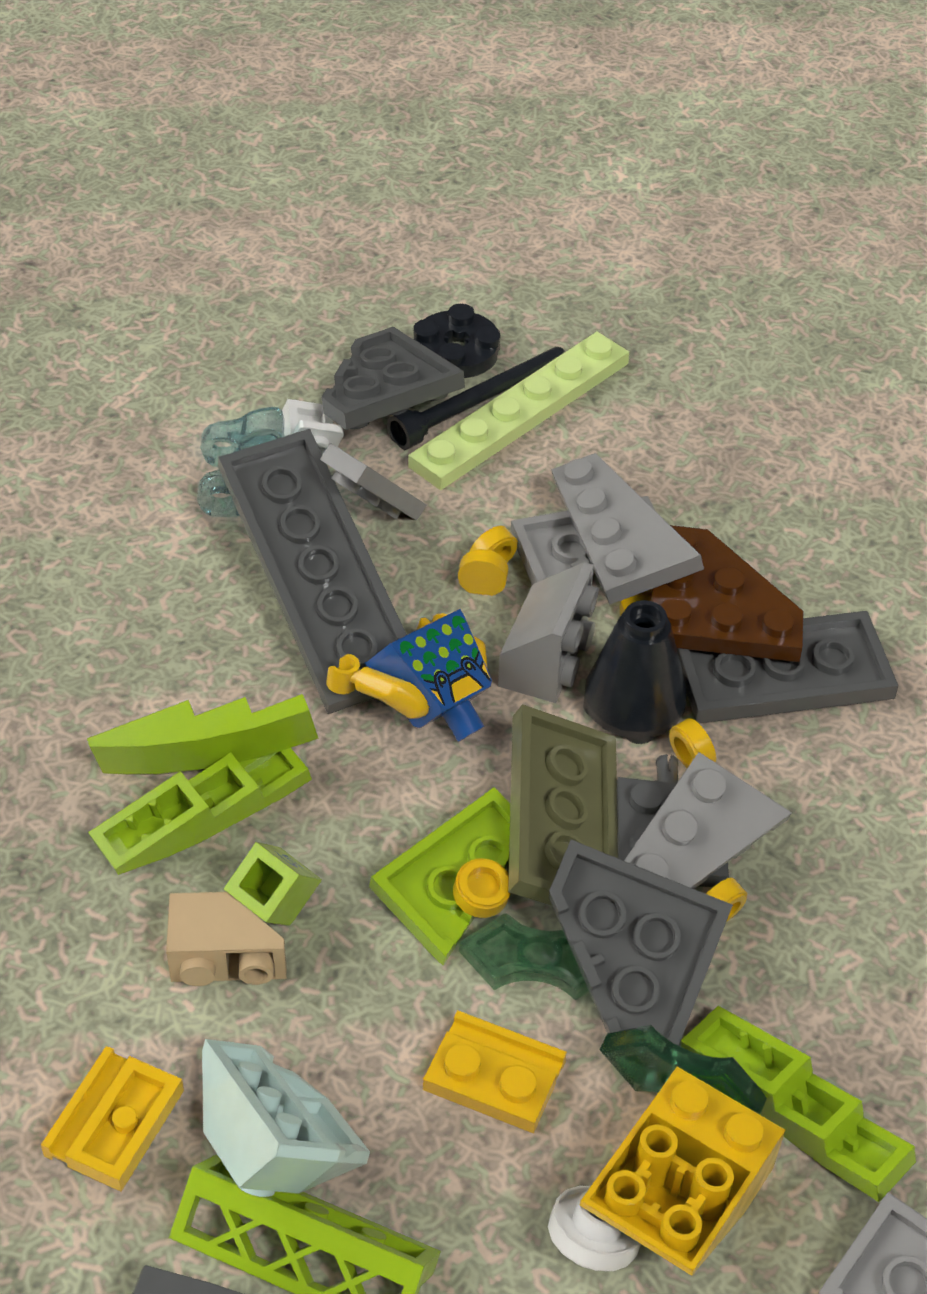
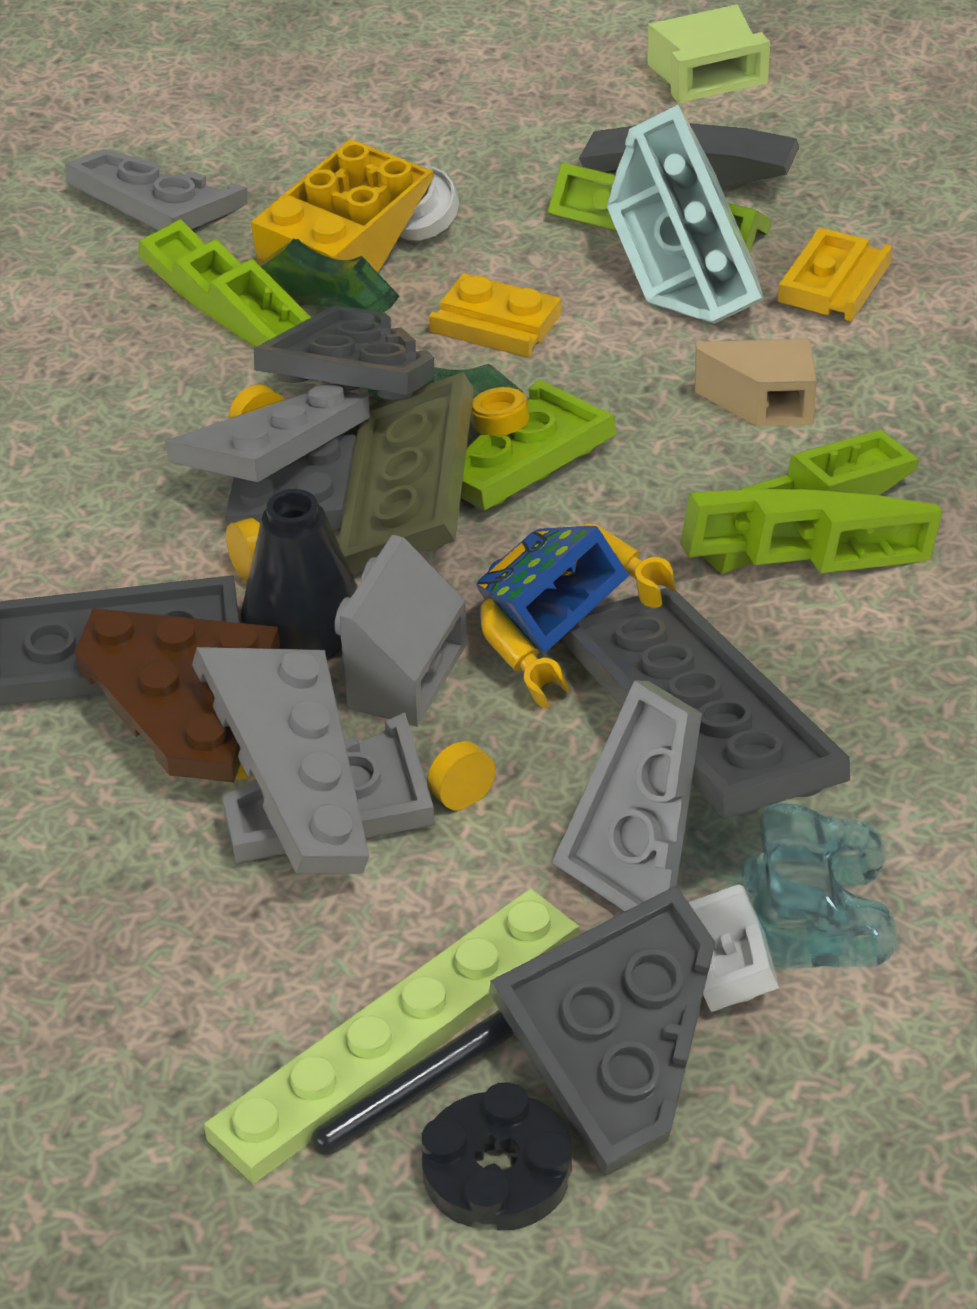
camera: 175 degrees left, 5 degrees down
(272, 884) = (712, 403): lime brick -> none
(483, 572) = (485, 732): yellow tile -> none

